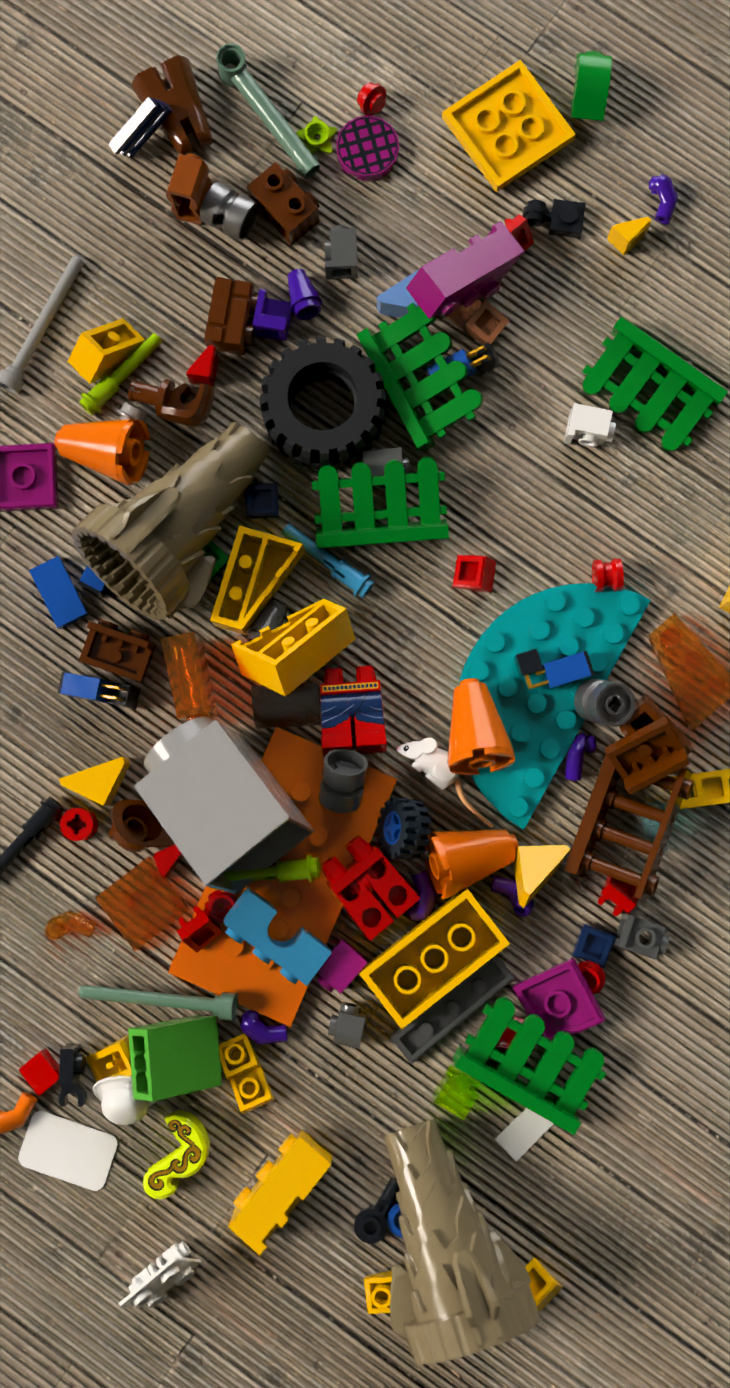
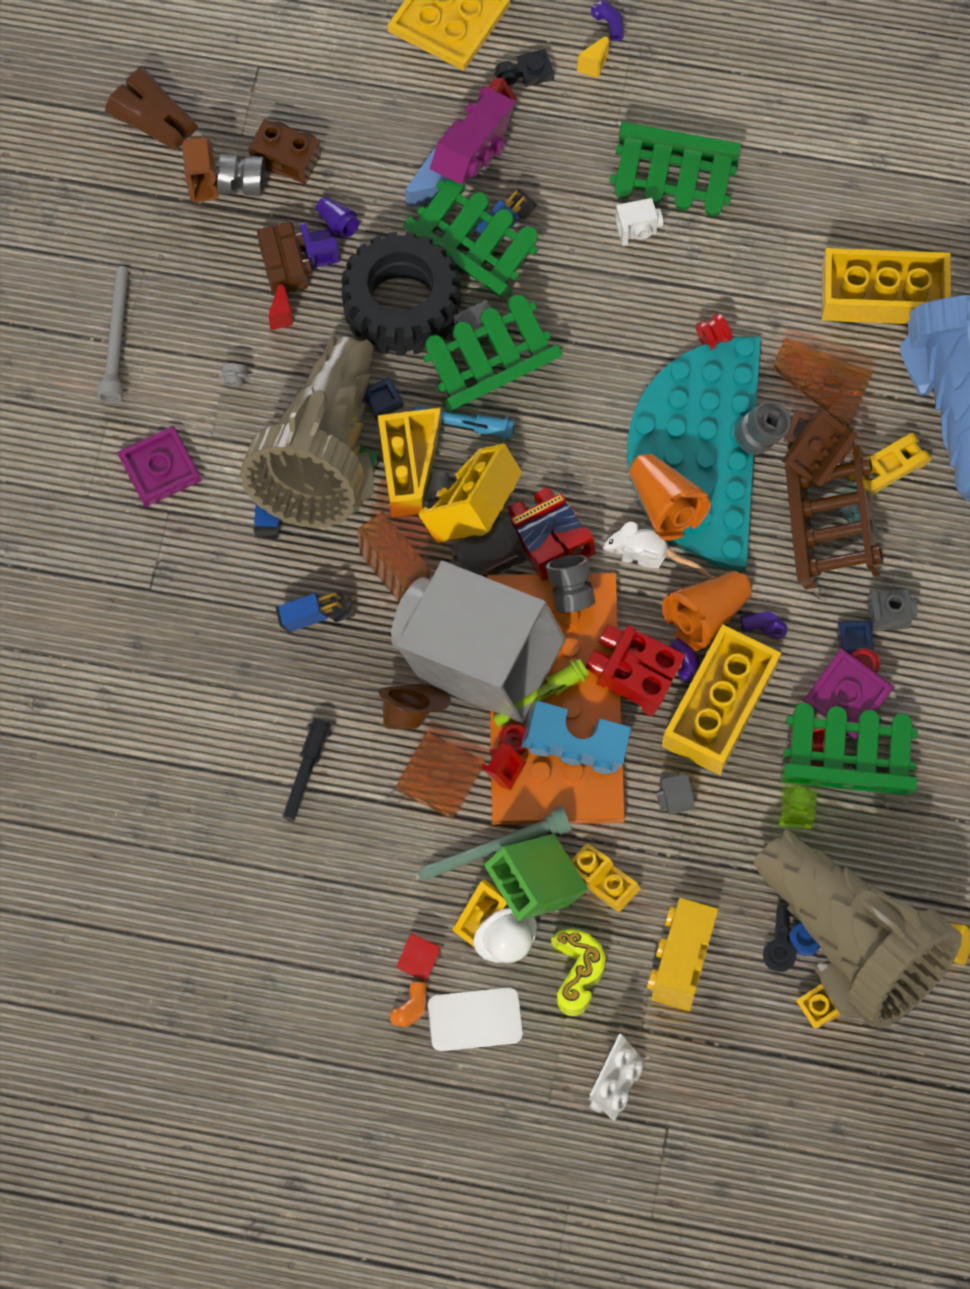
camera: 30 degrees left, 15 degrees down
(59, 592) = (237, 547): blue tile -> none
(67, 923) = (382, 819): clear orange arm -> none
(71, 1066) = (445, 936): black plate -> none
(86, 824) = (352, 738): red wheel -> none
(98, 782) = (350, 687): yellow slope -> none
(104, 349) = (183, 331): yellow slope -> none
(107, 447) = (224, 406): orange cone -> none
(110, 384) = (193, 376): lime pin -> none
(117, 651) = (315, 569): reddish brown bracket -> none
(140, 127) = (131, 138): dark blue tile -> none
(167, 860) = (445, 721): red slope -> none
(170, 401) = (264, 349): reddish brown piece -> none
(261, 1033) = (599, 836): dark purple arm -> none
(264, 108) = (220, 77): sand green piece -> none
(319, 128) = (289, 81): lime plate -> none
(341, 253) = (356, 170): dark grey brick -> none
(341, 967) = (644, 746): magenta brick -> none
(367, 148) = (335, 79): tile -> none
(371, 98) = (320, 39): red plate -> none
(403, 828) = (642, 603): black wheel -> none
(451, 1009) = (758, 742): dark grey tile -> none
(474, 573) = (598, 380): red slope -> none
(479, 321) = (499, 177): nougat slope -> none
(522, 1133) = (875, 818): white sticker -> none
(535, 867) = (772, 589): yellow slope -> none
(555, 672) = (709, 424): piece -> none
(575, 755) = (761, 489): dark purple arm -> none
(619, 893) = (855, 581): red tile -> none

